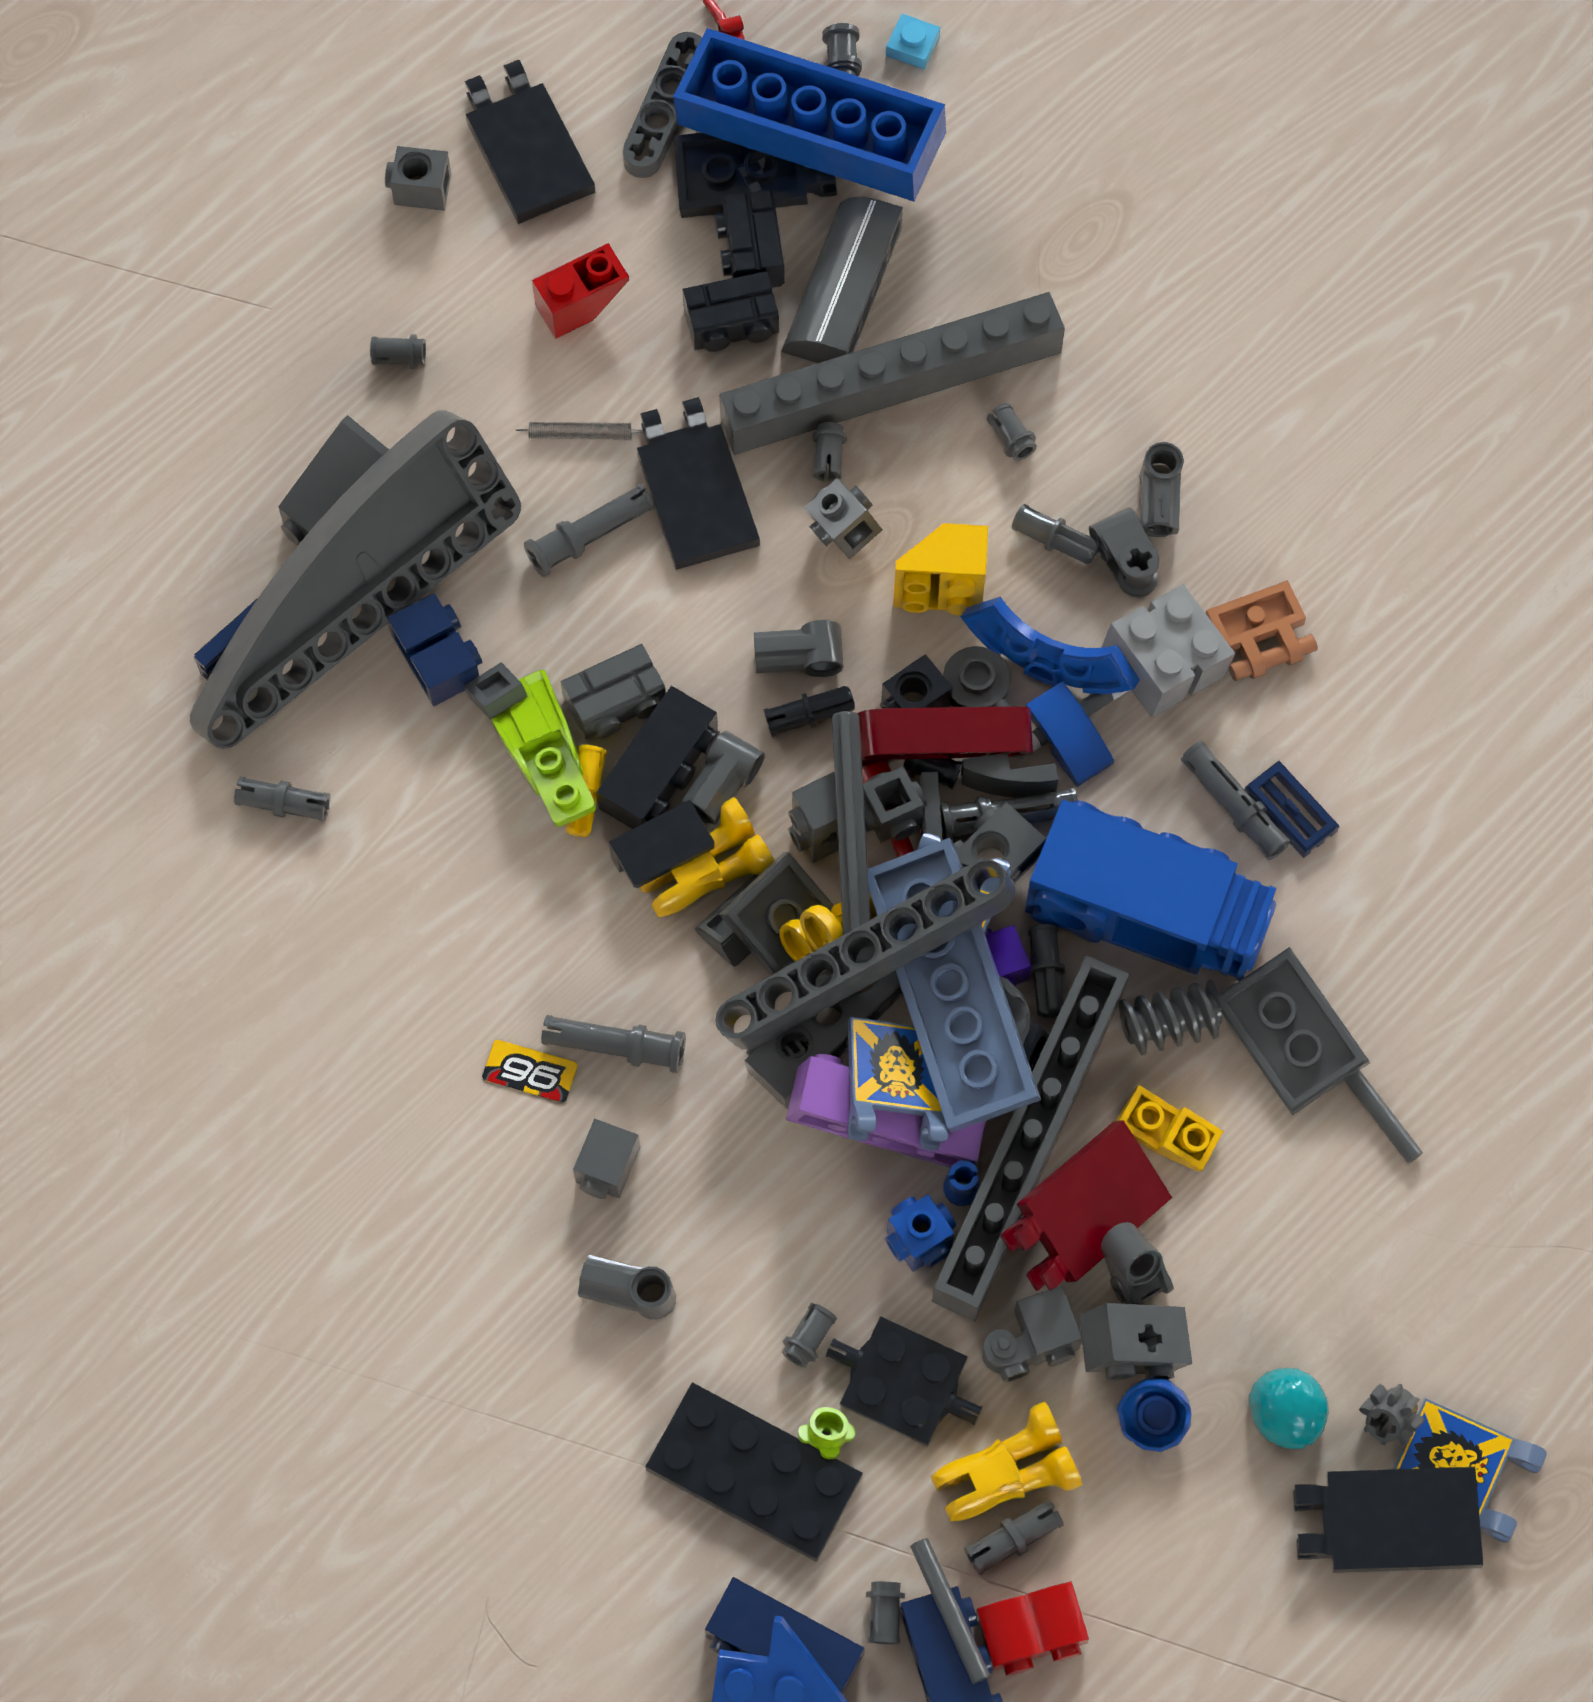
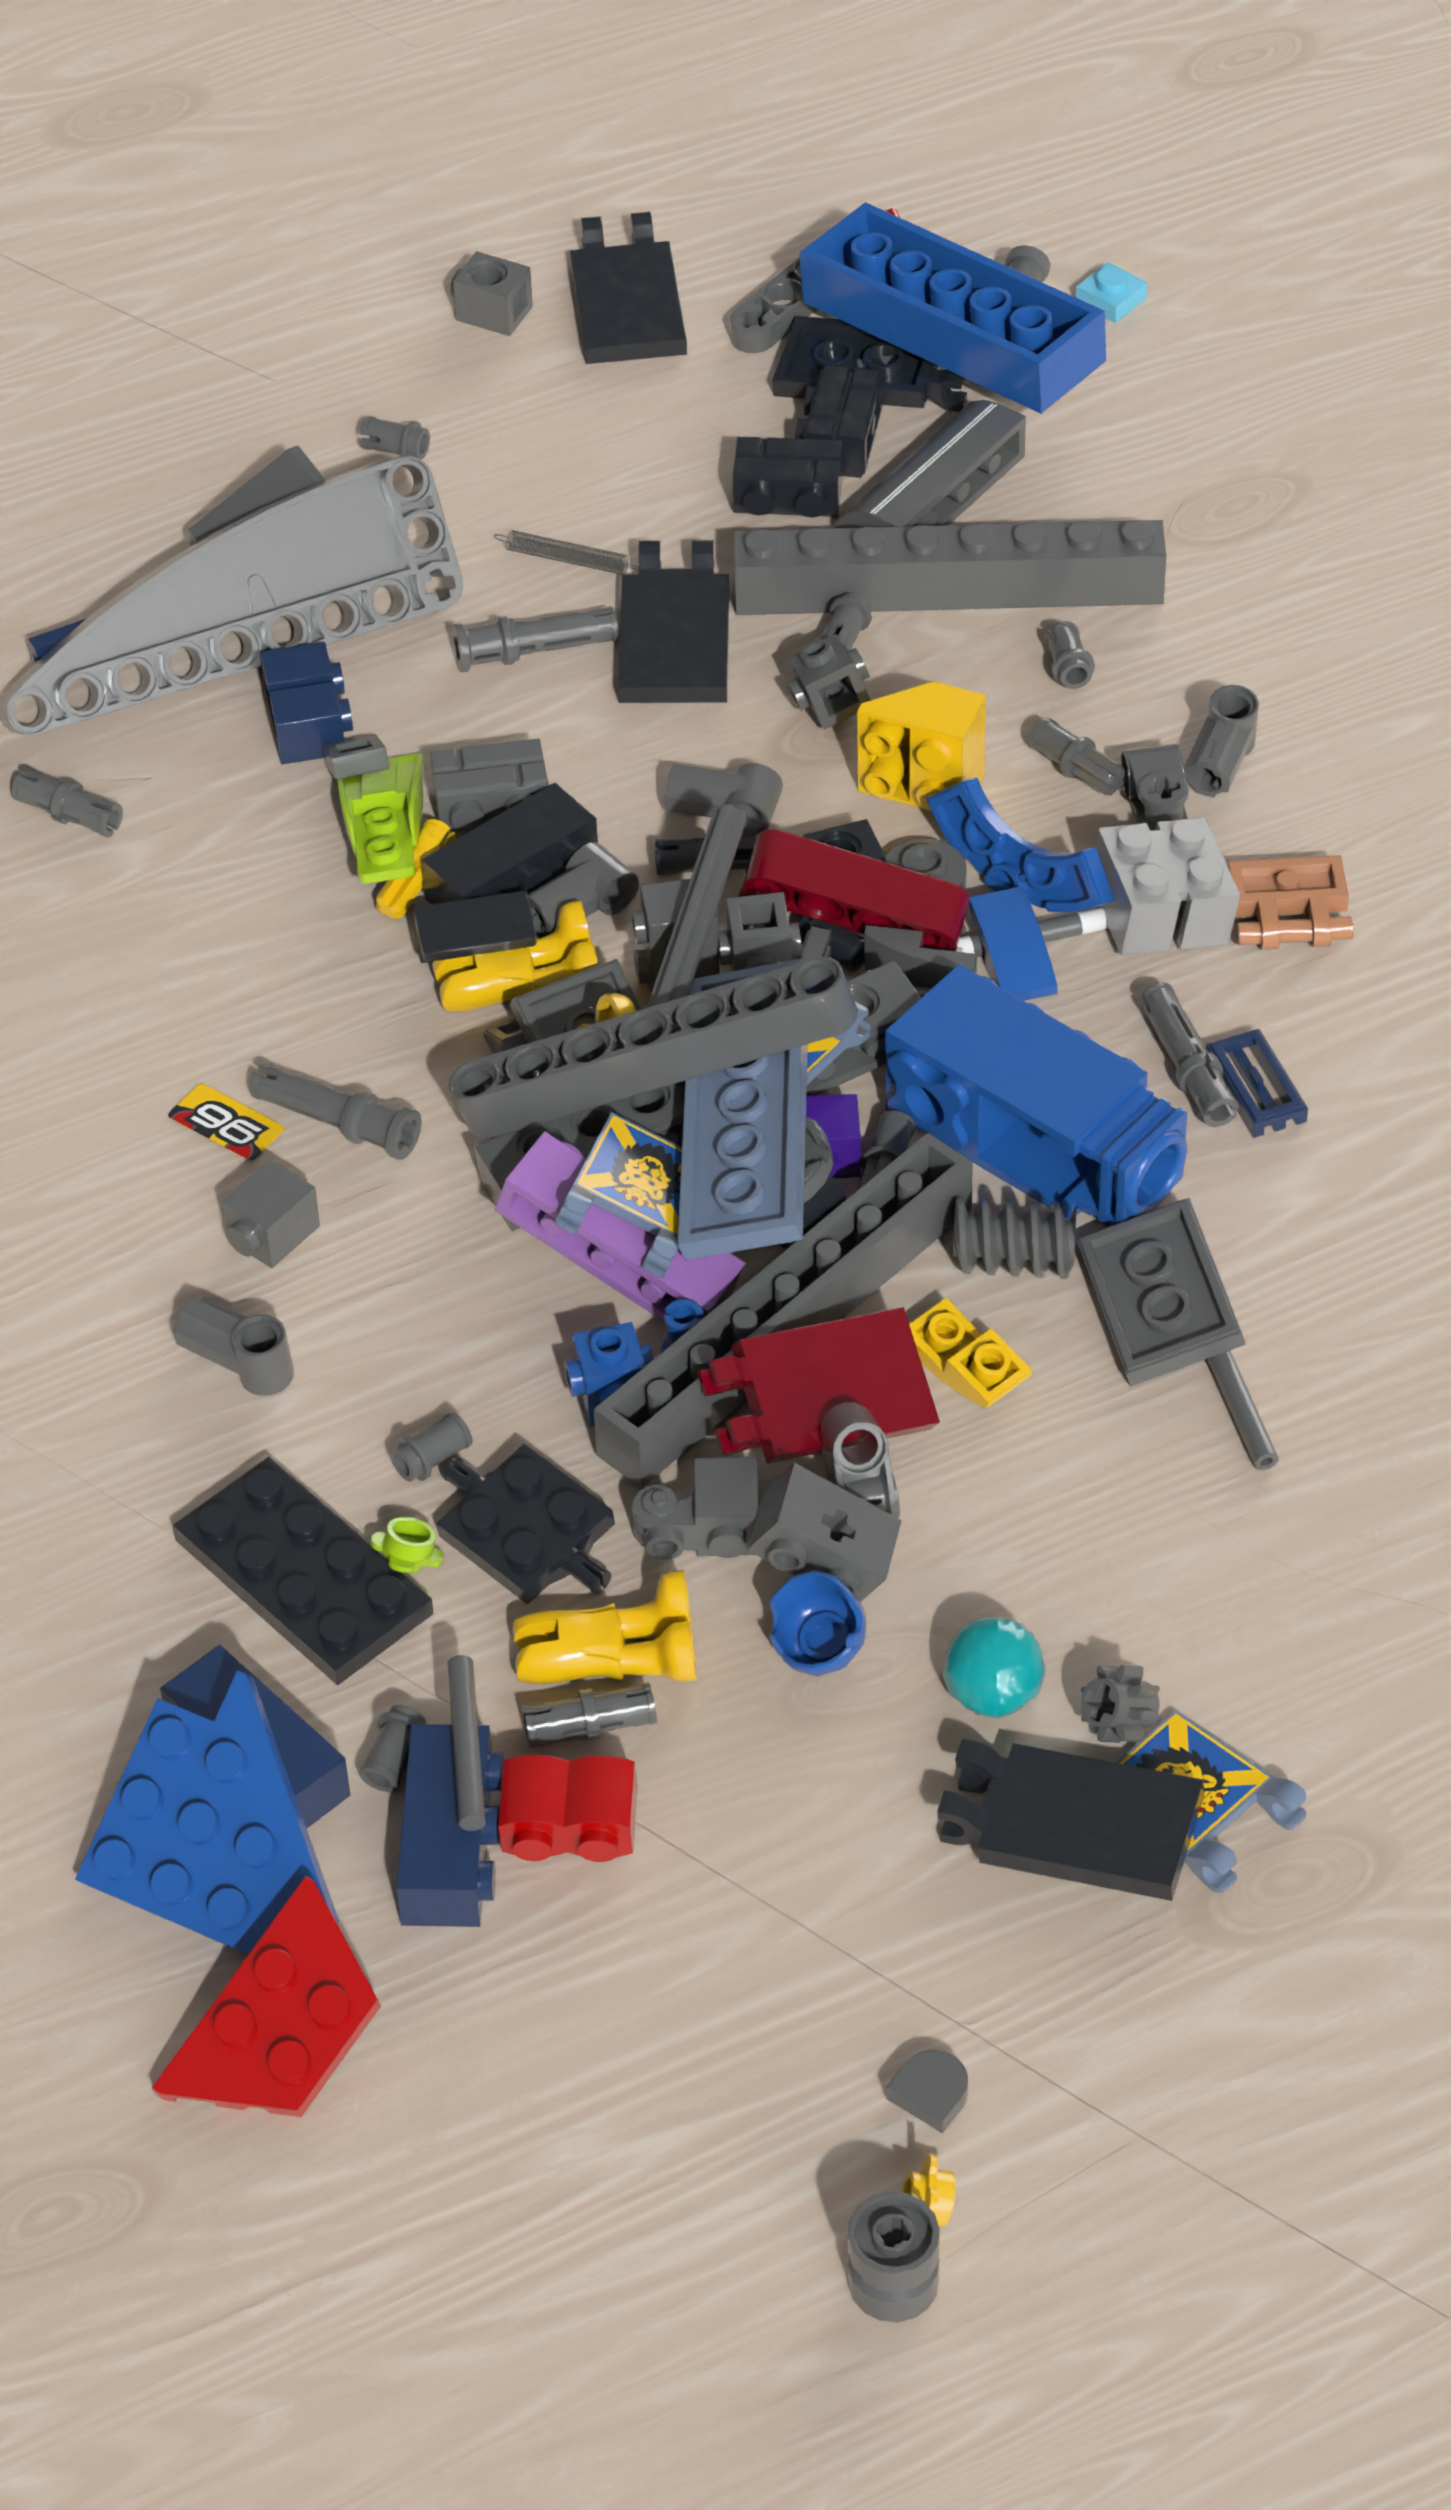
camera: 20 degrees right, 20 degrees down
(579, 290) = (620, 420): red slope -> none

